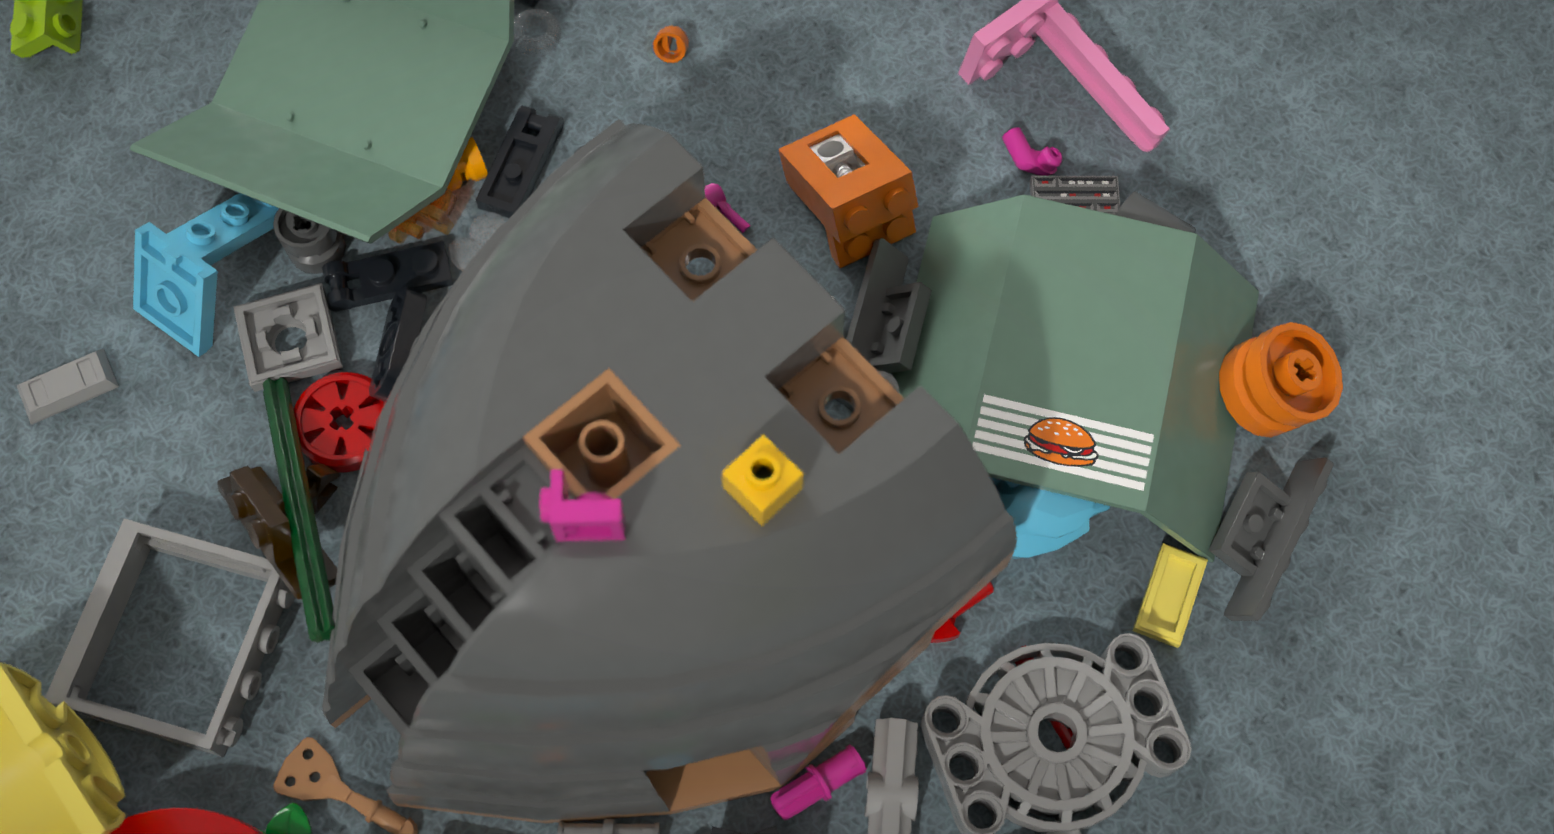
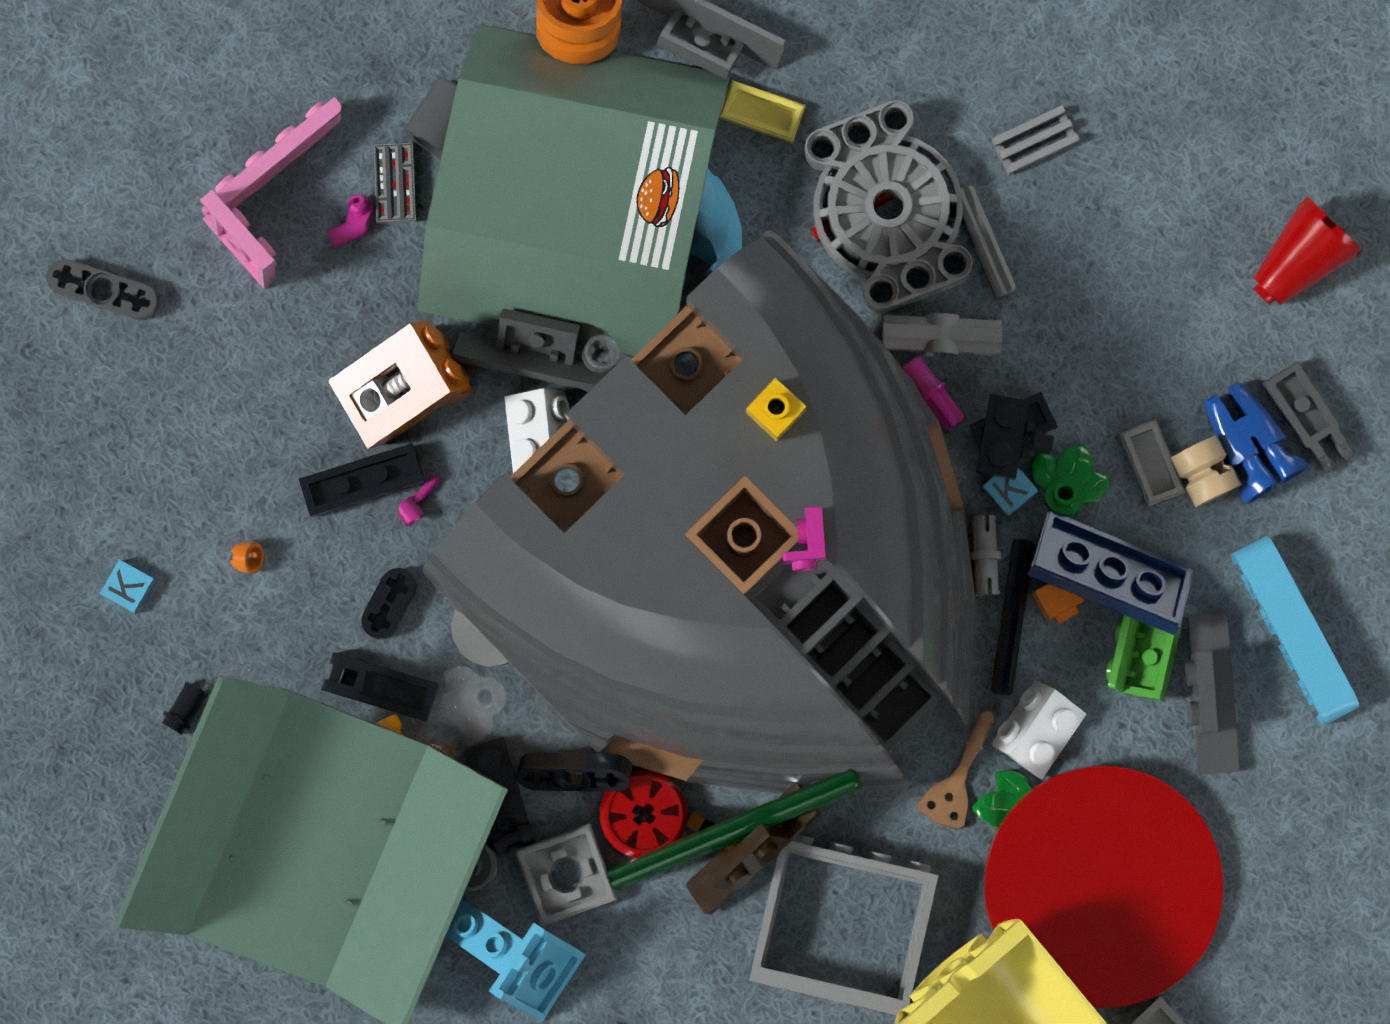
camera: 90 degrees left, 15 degrees up
(746, 152) = (361, 480): none -> black plate

